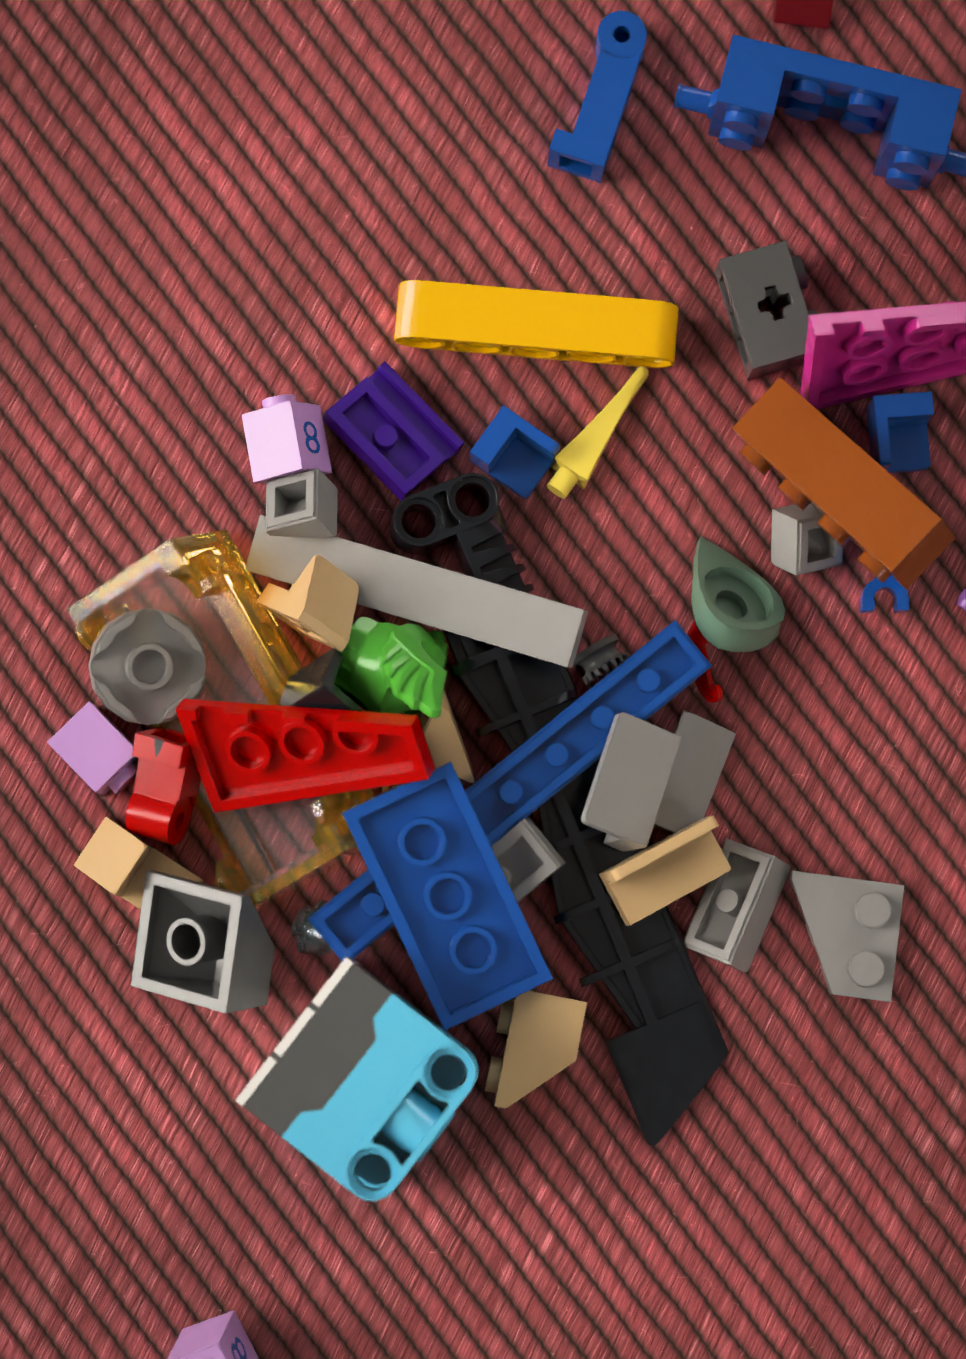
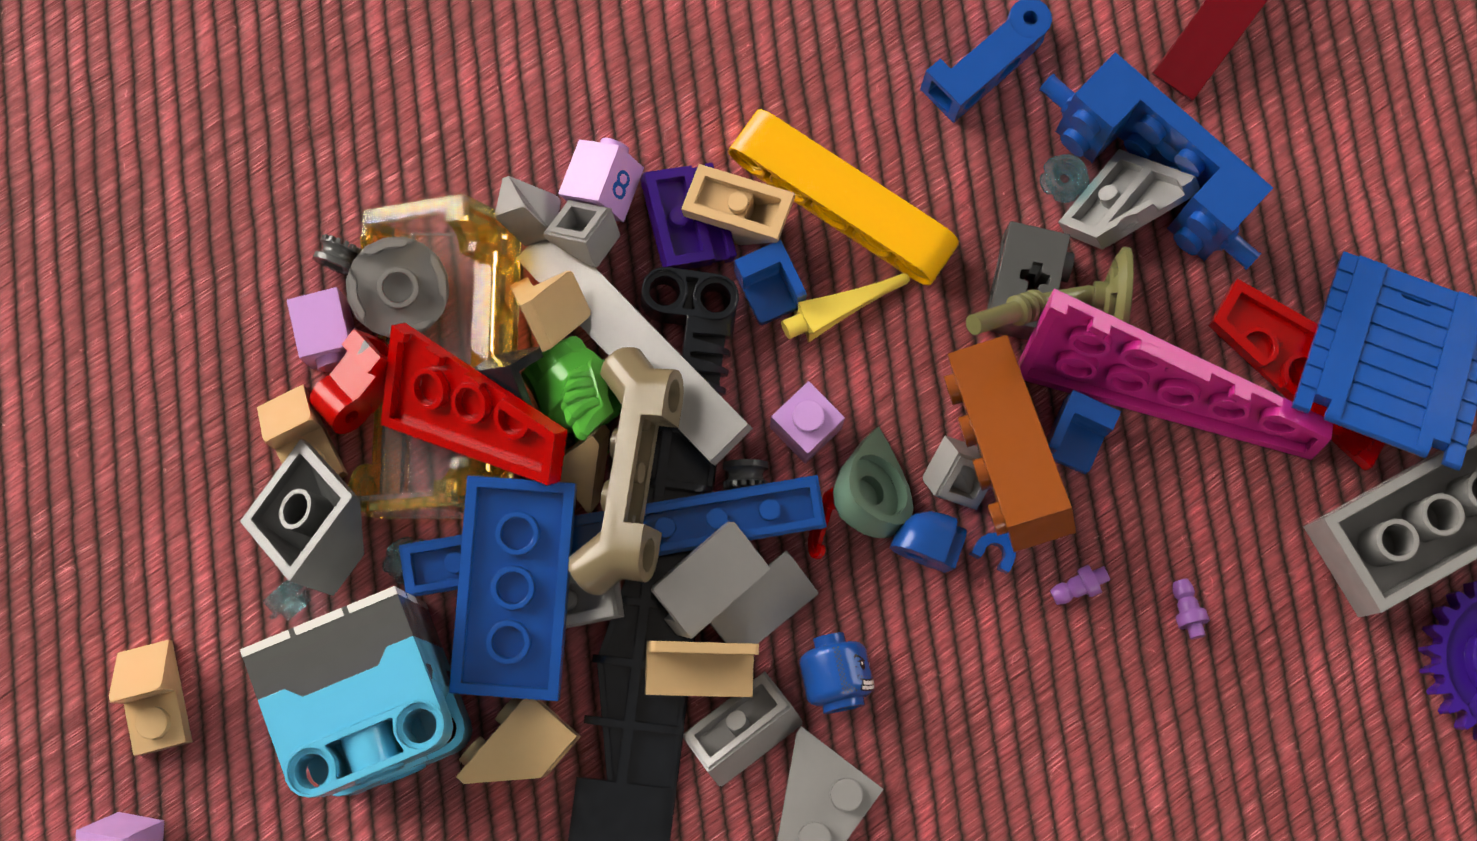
camera: 30 degrees right, 5 degrees down
(64, 668) = (336, 255): none -> dark grey bush
(146, 1203) = (152, 696): none -> tan slope
(222, 1034) = (287, 600): none -> clear light blue plate
(229, 515) = (525, 210): none -> light grey slope
(441, 393) = (738, 204): none -> tan slope
(533, 795) = (625, 544): none -> dark tan plate
(631, 573) = (806, 422): none -> lavender brick
(745, 166) = (1066, 165): none -> clear light blue plate
(798, 801) = (836, 673): none -> blue head
(816, 620) = (930, 540): none -> blue piece
(818, 170) = (1124, 198): none -> light grey wing
(855, 284) = (1109, 296): none -> olive dish

